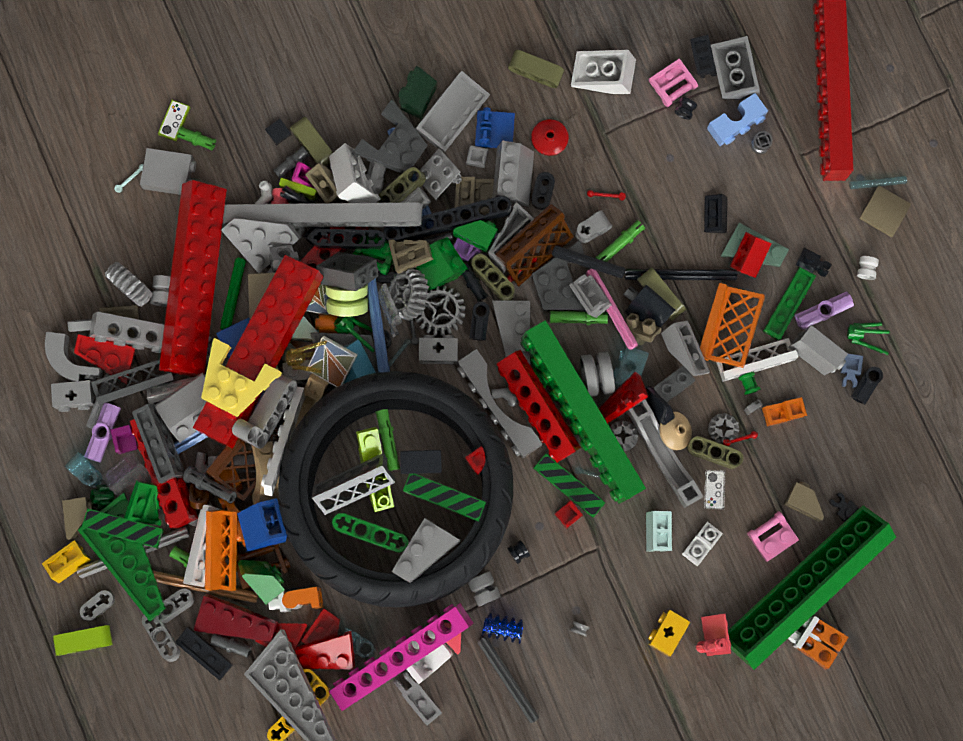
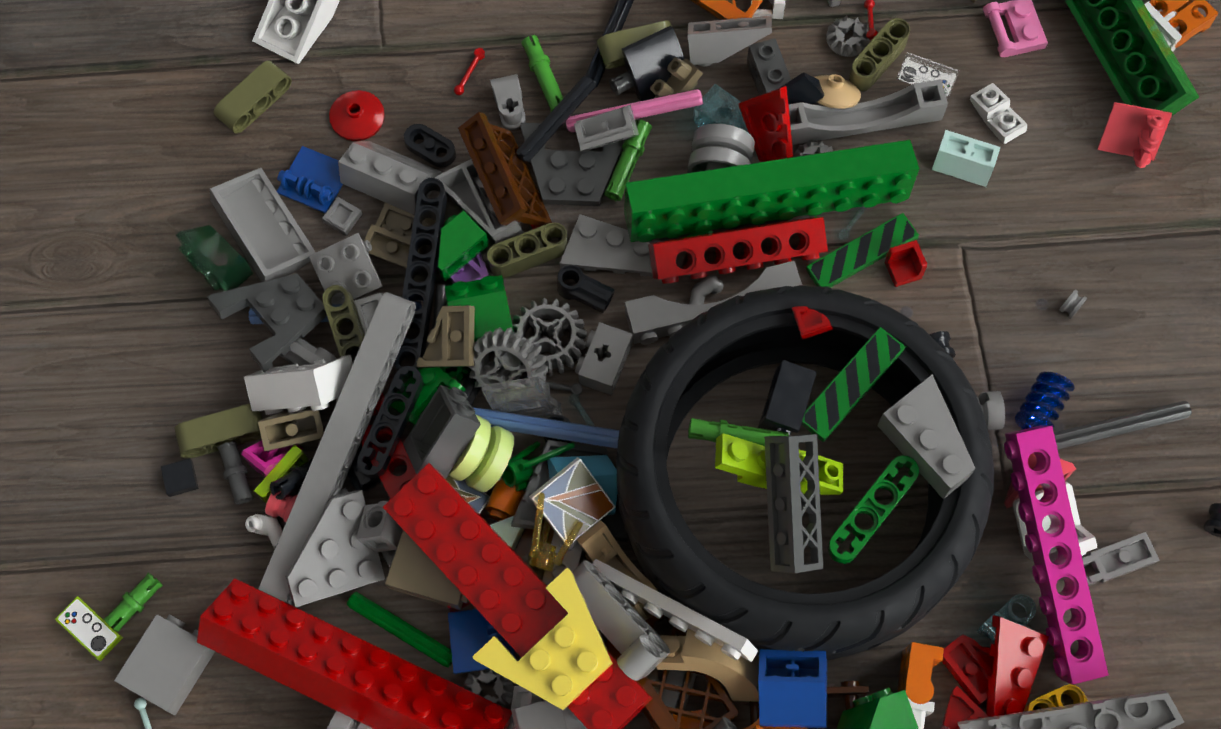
camera: 65 degrees left, 10 degrees down
(474, 284) = (528, 279): black pin -> none
(678, 627) = (1111, 192): yellow brick -> none

